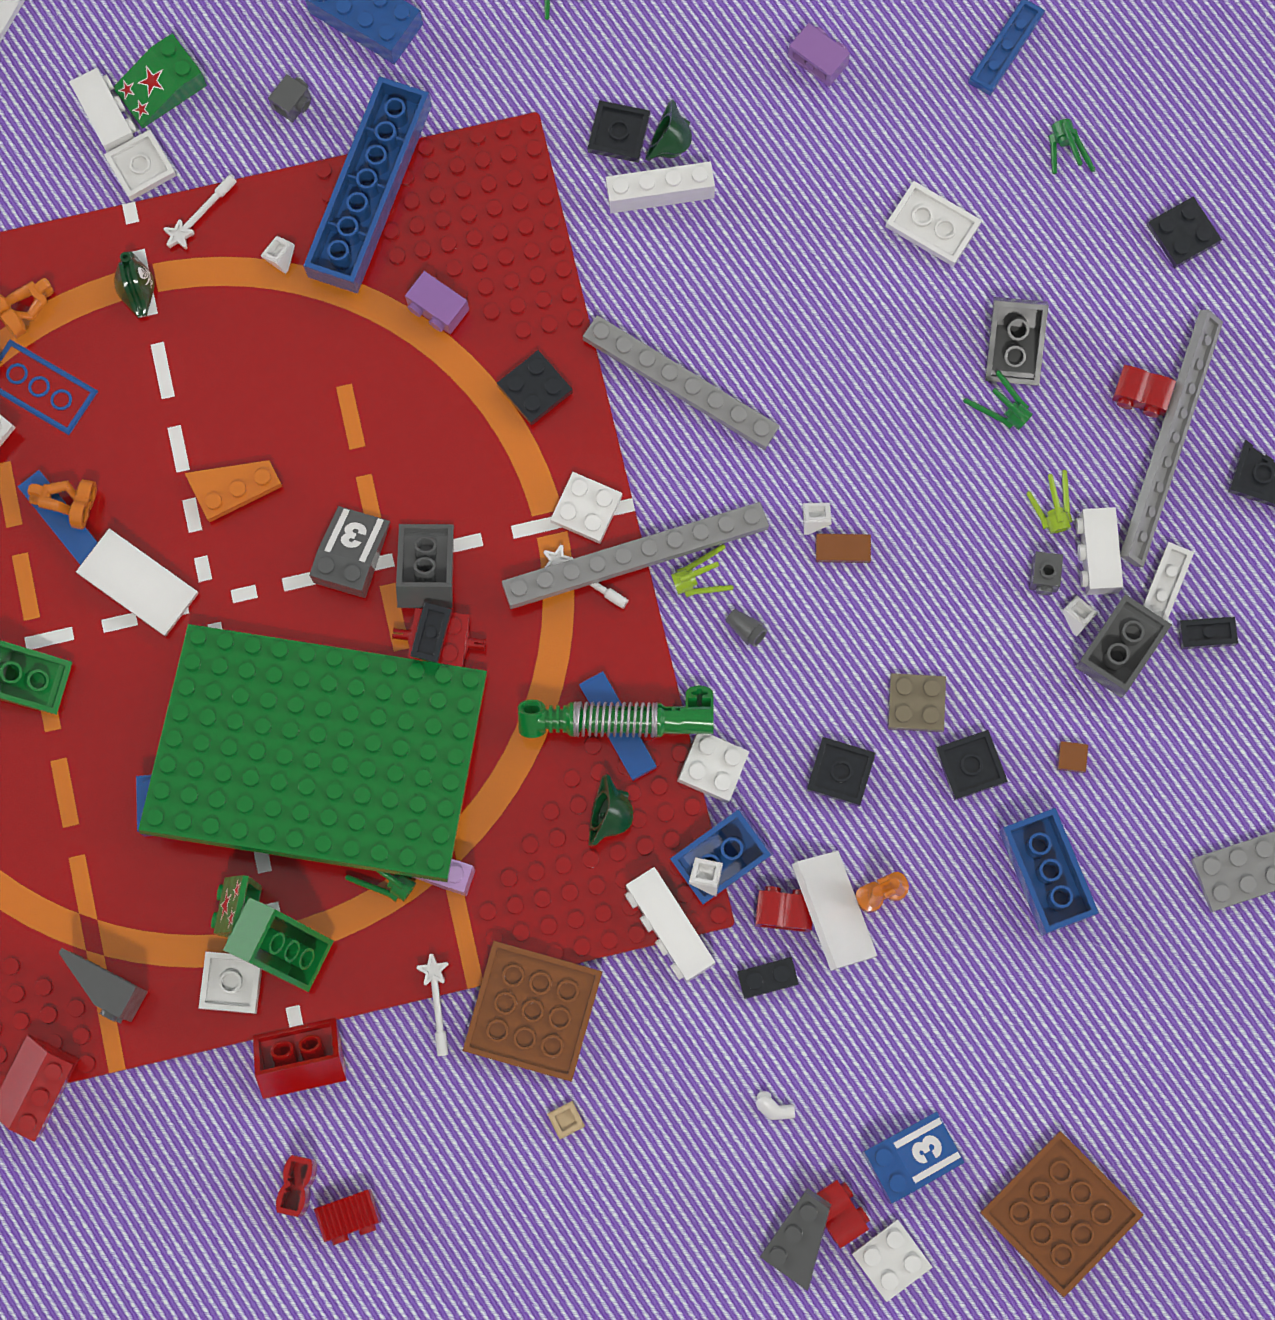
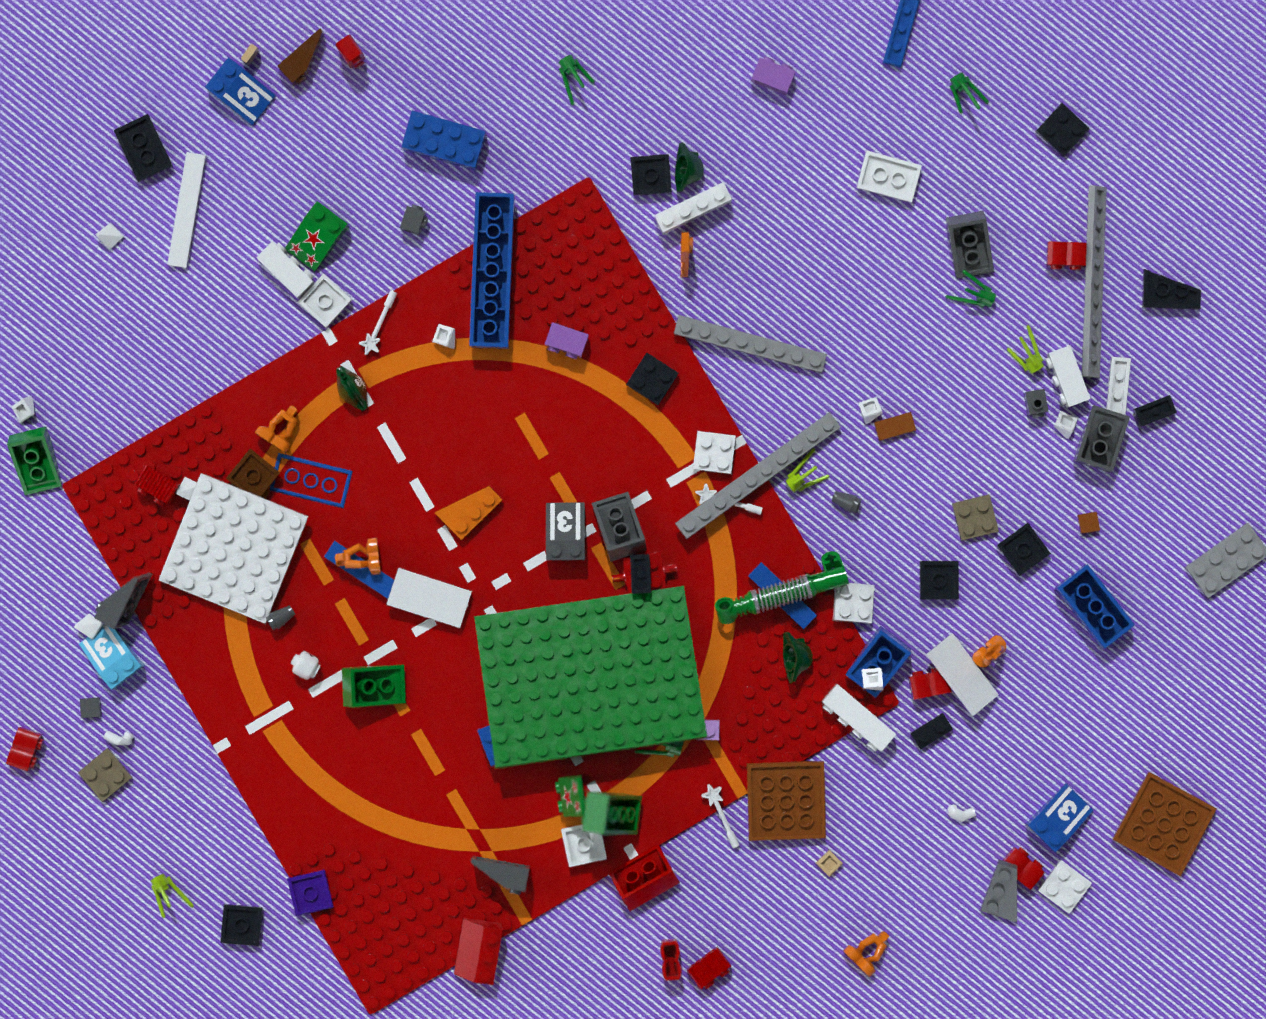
camera: 20 degrees left, 10 degrees up
(562, 1266) = (865, 964): none -> orange piece
(631, 234) = (686, 248): none -> orange wing

